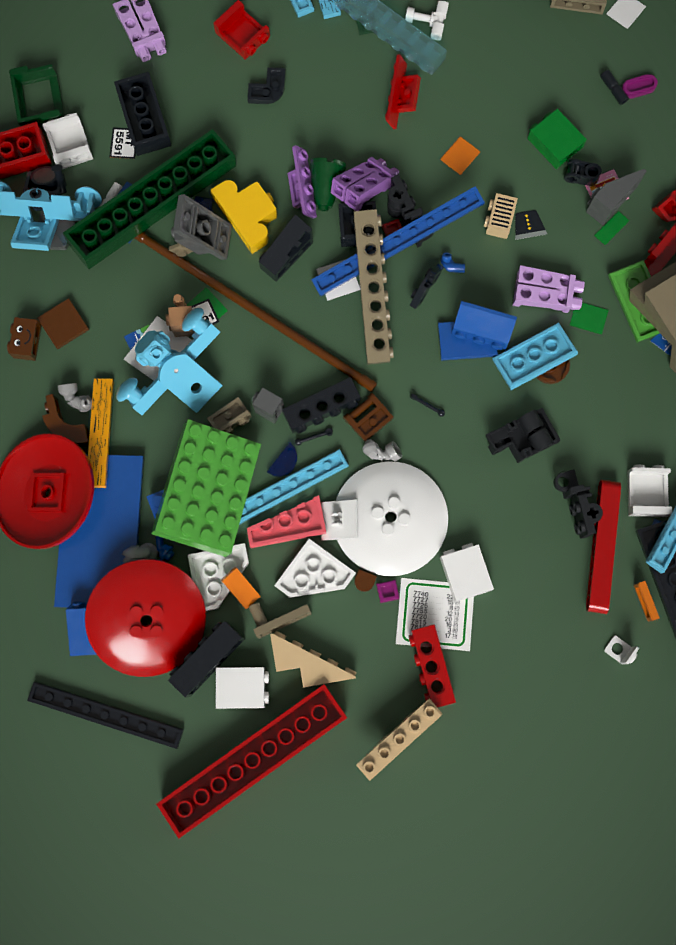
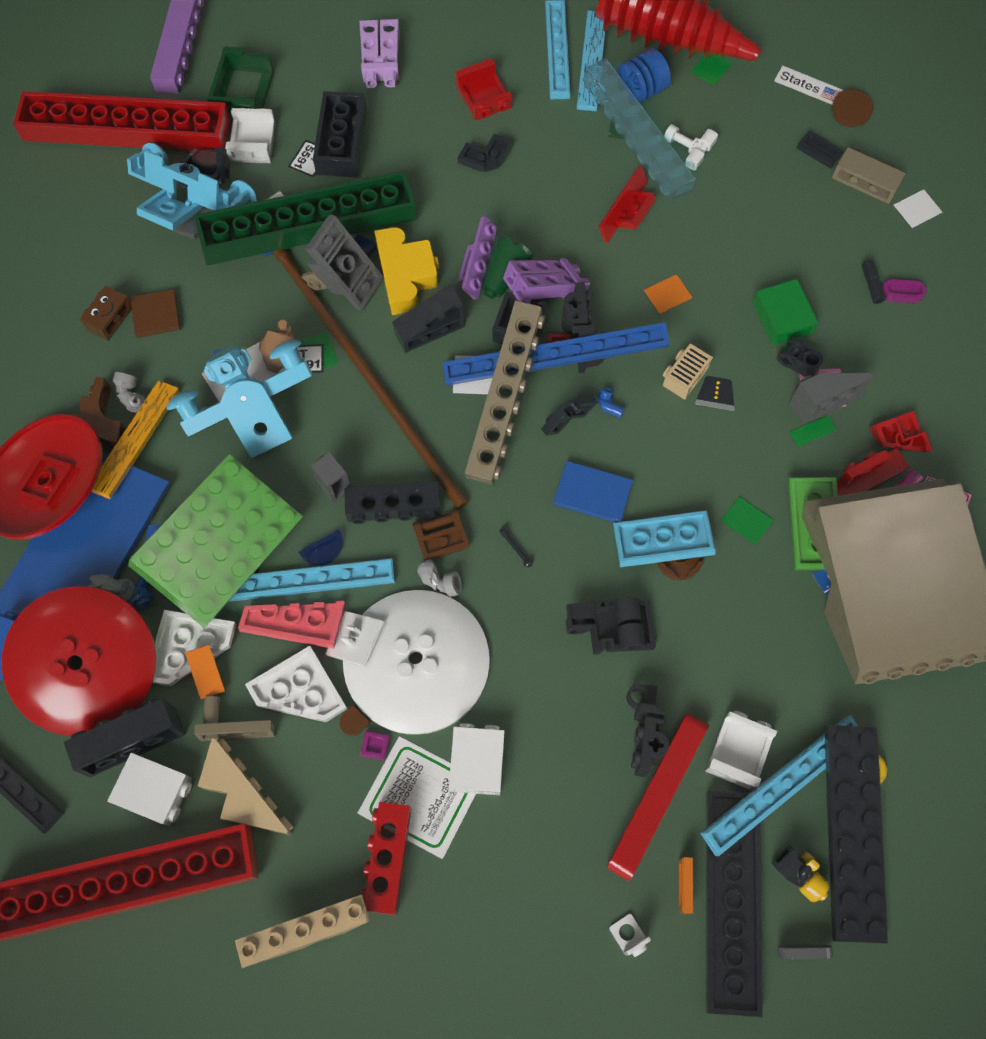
camera: 20 degrees right, 10 degrees down
(230, 416) = (285, 475): dark tan bracket -> none
(328, 432) = (389, 535): black hinge -> none
(483, 325) = (615, 479): blue slope -> none
(547, 289) = (708, 470): lavender hips -> none

